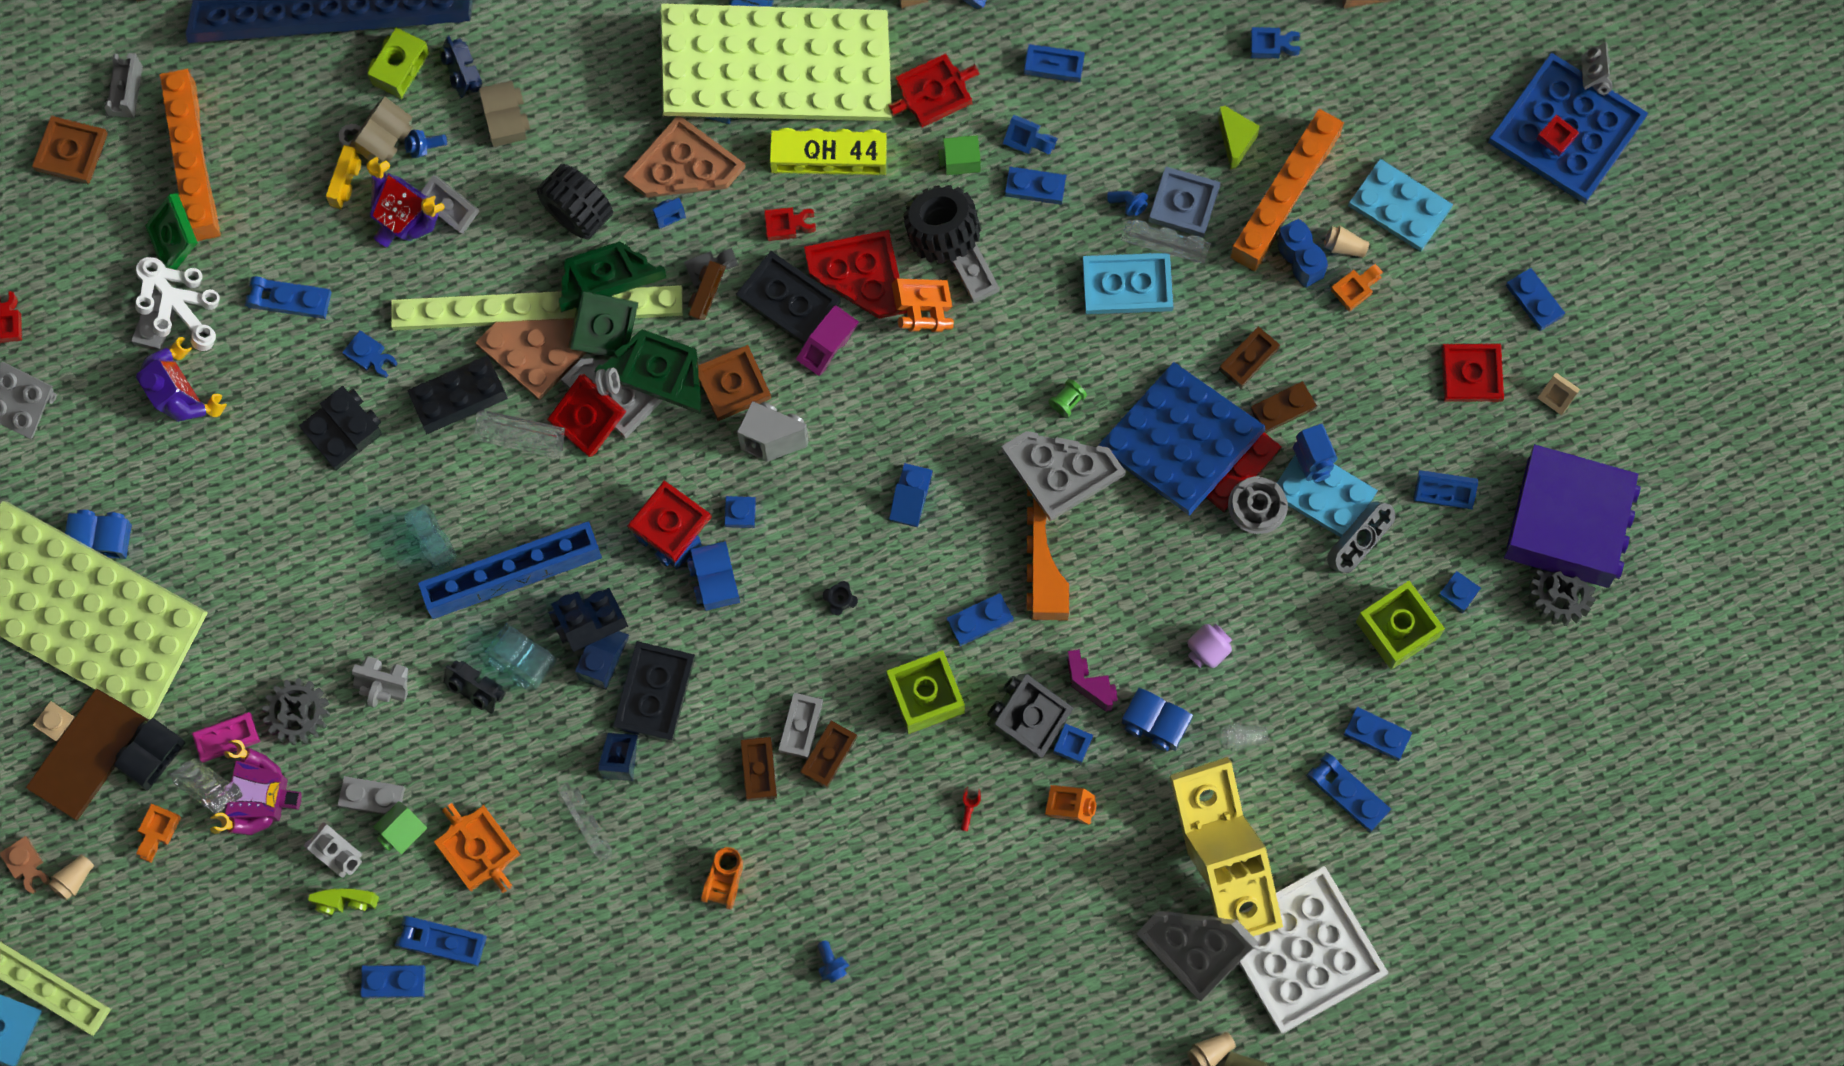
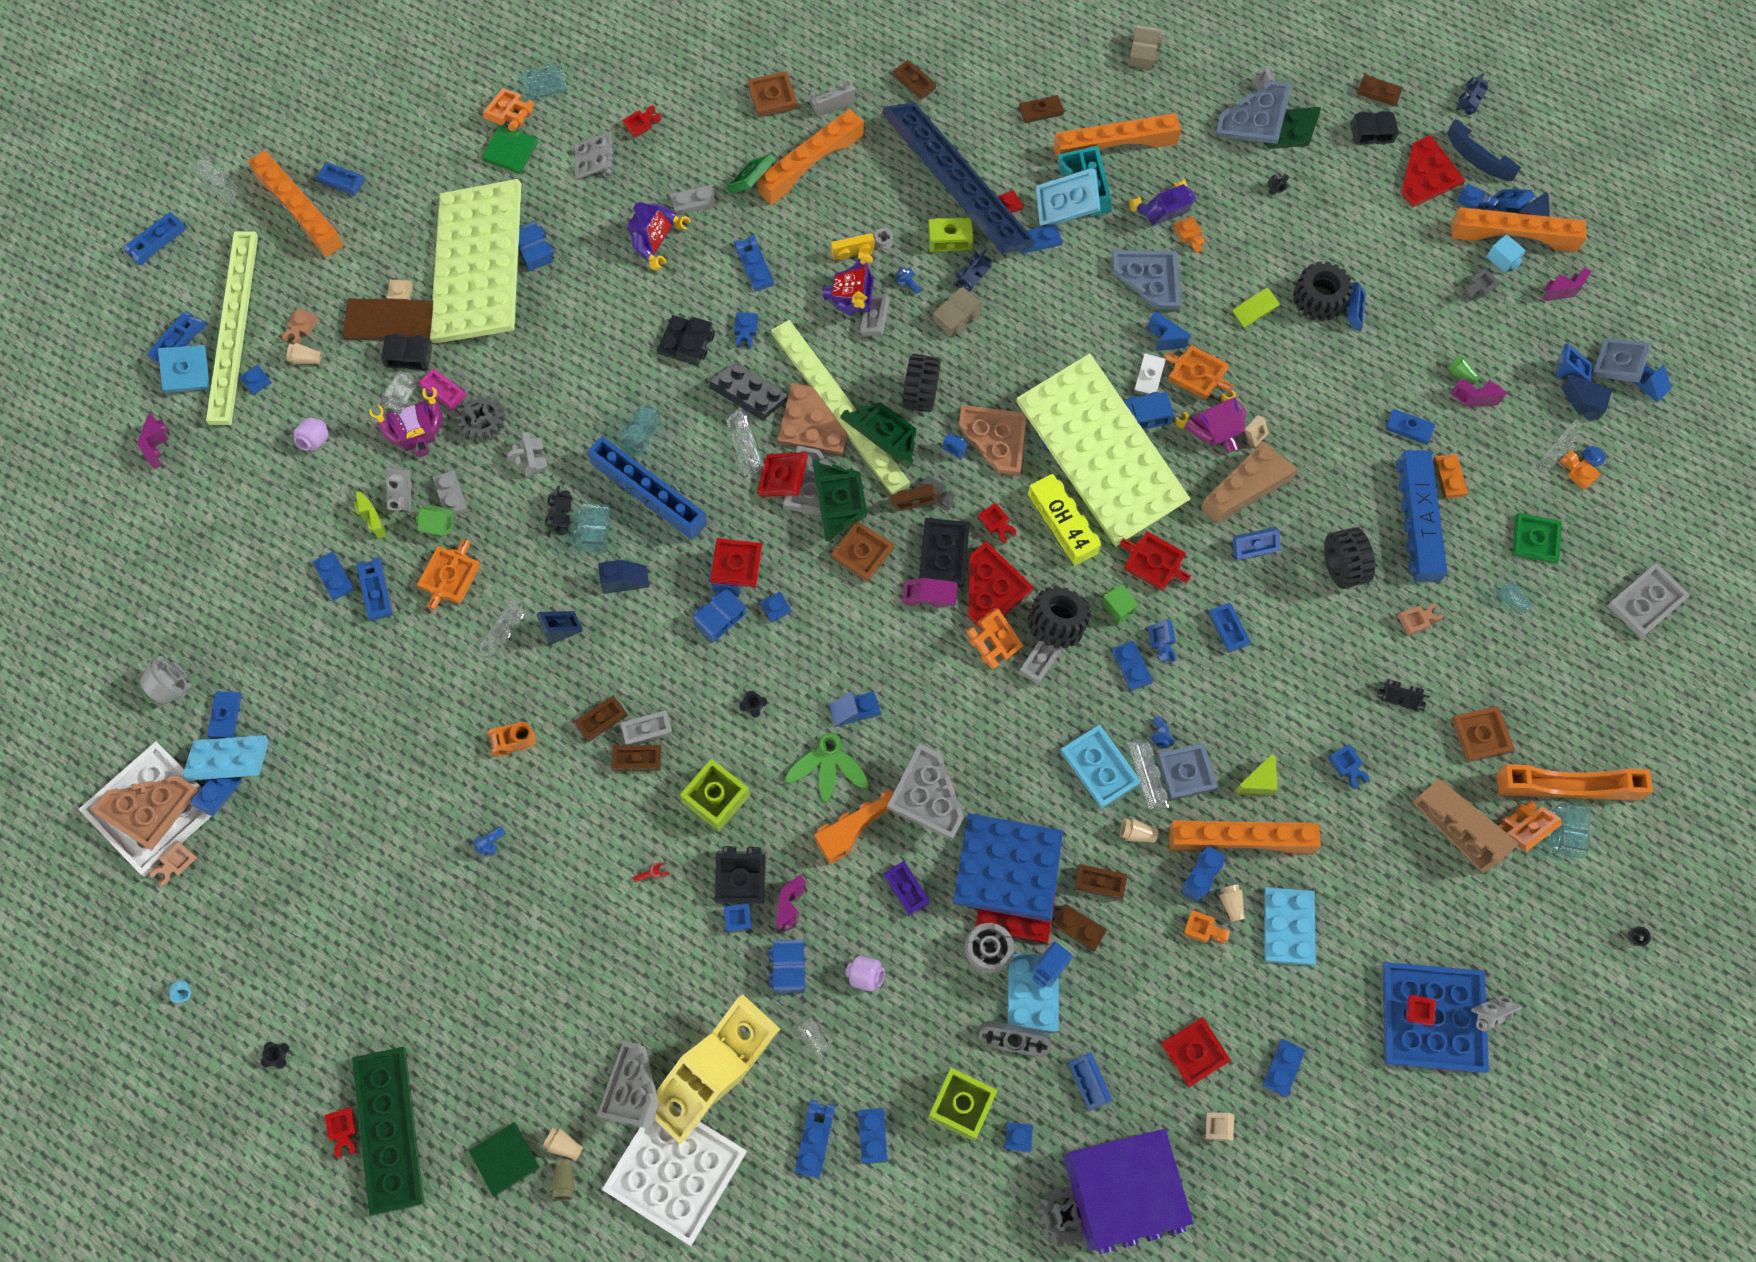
camera: 55 degrees right, 5 degrees down
(66, 951) = (255, 379): none -> blue plate
(156, 827) = (361, 384): orange plate -> none
(175, 299) = (711, 200): white plant -> none
(190, 918) = (311, 434): none -> lavender head
(381, 131) = (896, 249): dark tan brick -> none
(587, 619) = (639, 551): black plate -> none
(602, 323) = (849, 446): dark green tile -> none
(607, 381) = (808, 469): light grey bush -> none
(654, 691) = (617, 623): black plate -> none
(771, 433) = (838, 591): light grey slope -> none
(951, 554) = (828, 760): none -> bright green plant
(980, 619) = (792, 804): blue plate -> none
(1067, 398) = (989, 773): bright green bush -> none
(1071, 804) = (692, 941): orange bracket -> none
(1142, 554) = (906, 888): none -> dark purple plate
(1216, 291) = (1137, 831): none -> tan cone

